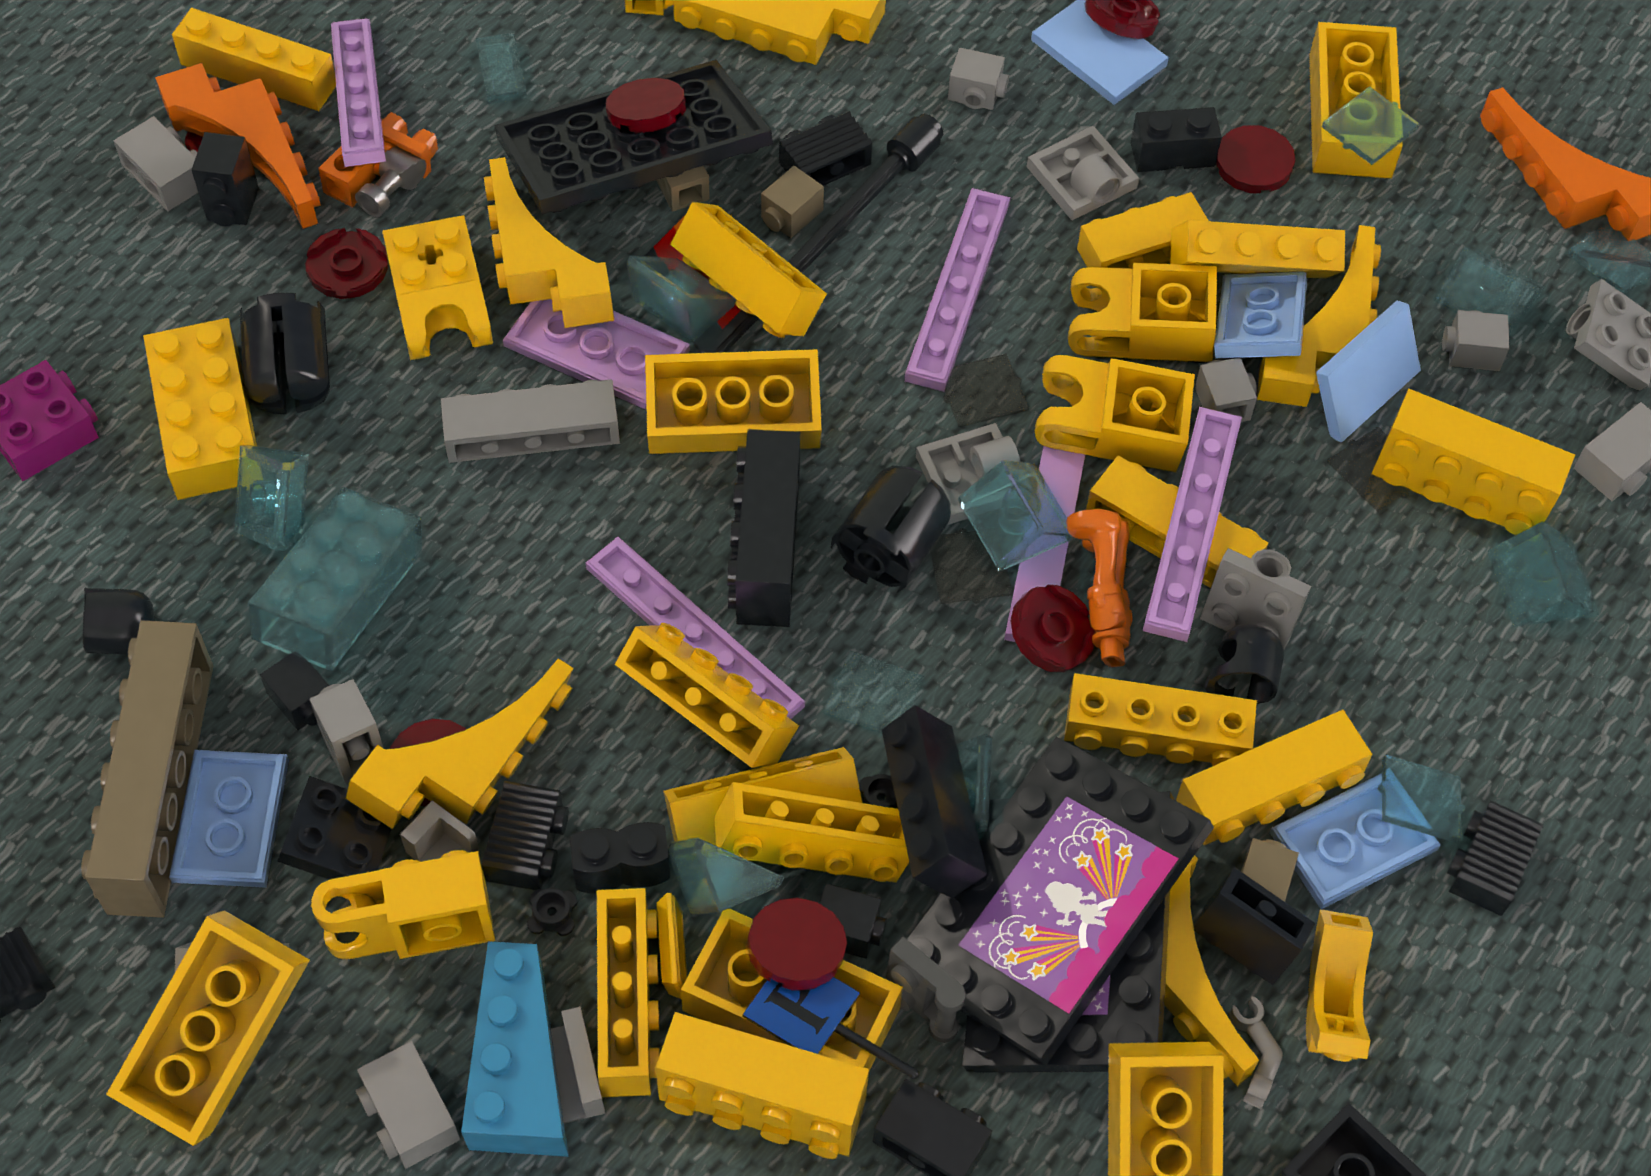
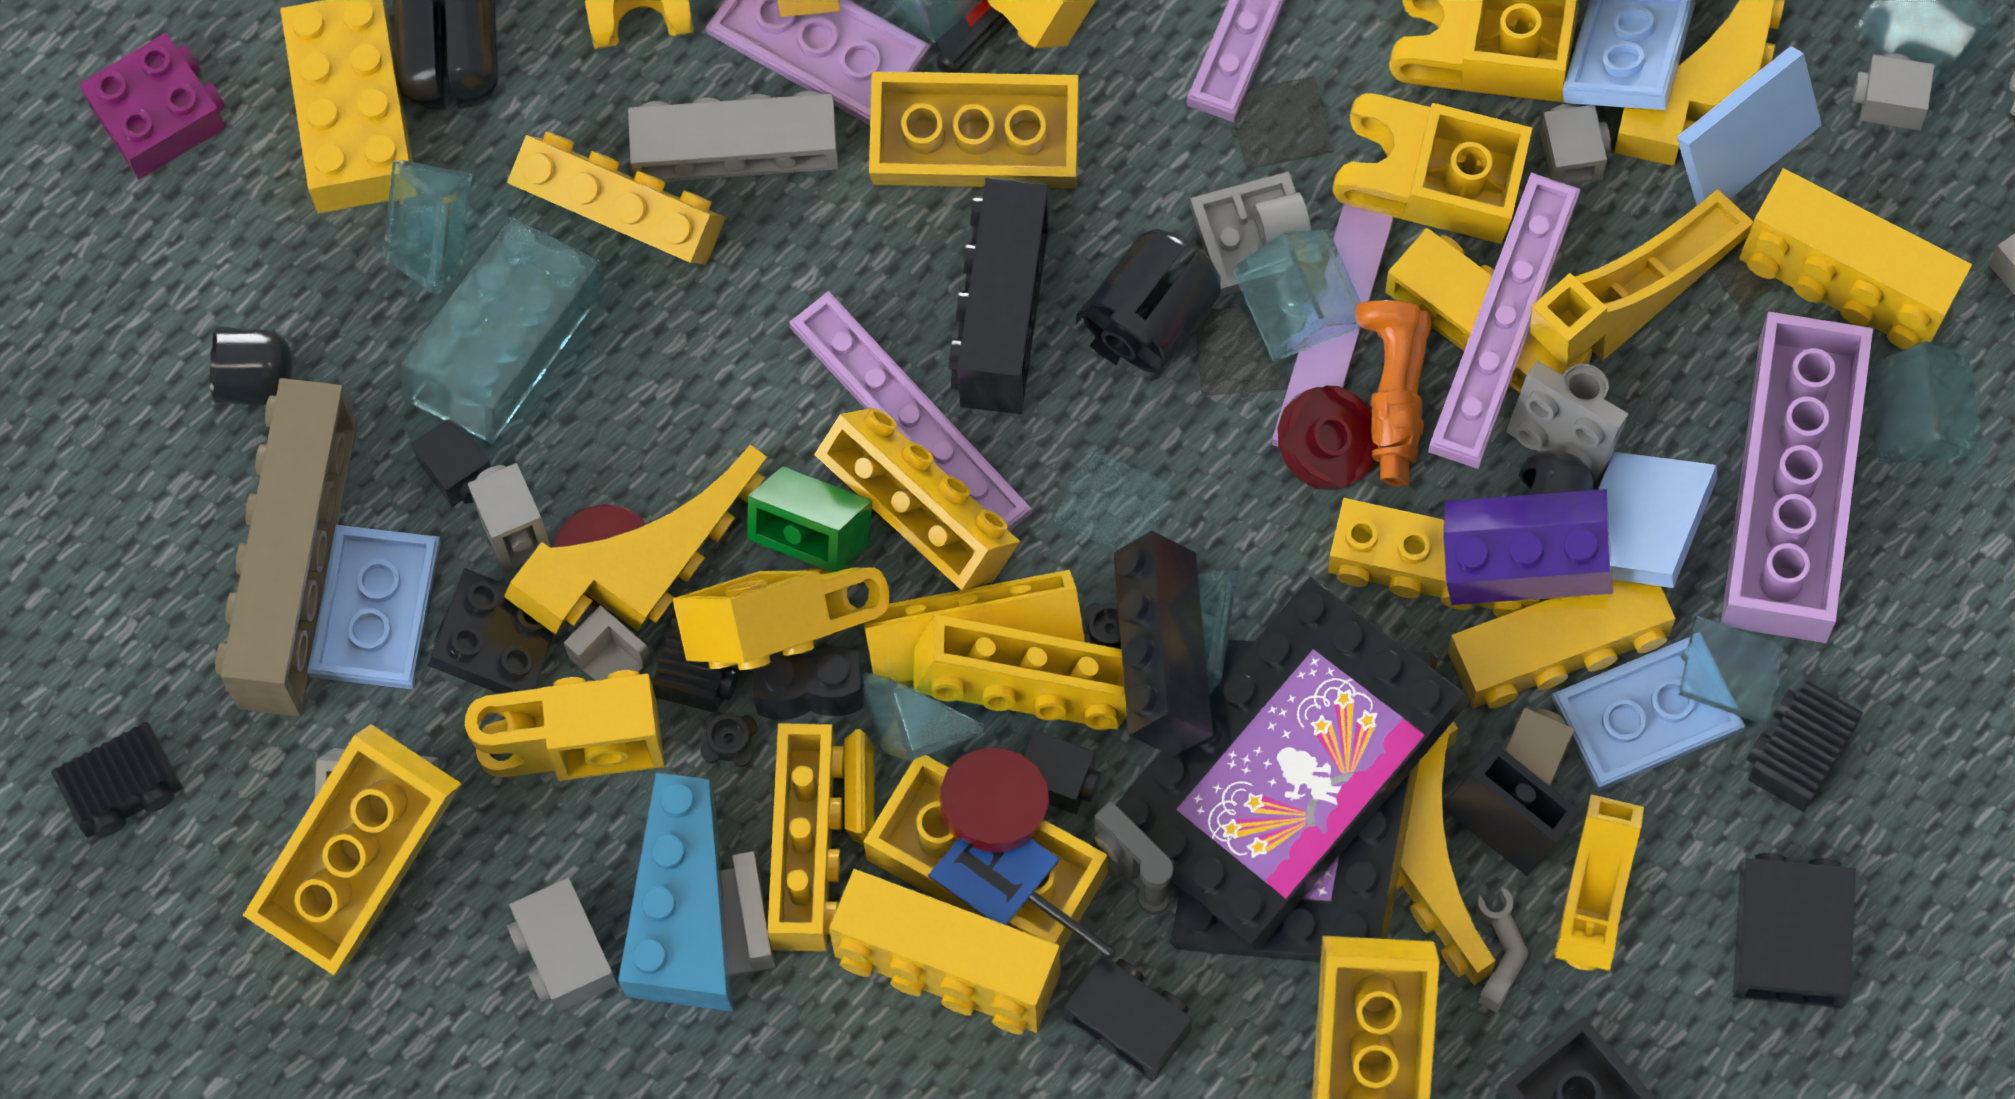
camera: 10 degrees right, 10 degrees up
(434, 471) = (624, 203): none -> yellow brick
(587, 794) = (773, 613): none -> yellow brick
(613, 718) = (809, 519): none -> green brick
(1243, 701) = (1528, 547): none -> dark purple slope
(1284, 501) = (1619, 298): none -> yellow arch
(1331, 677) = (1654, 514): none -> light blue tile
(1453, 639) = (1797, 477): none -> lavender brick
(1515, 1018) = (1794, 931): none -> black brick

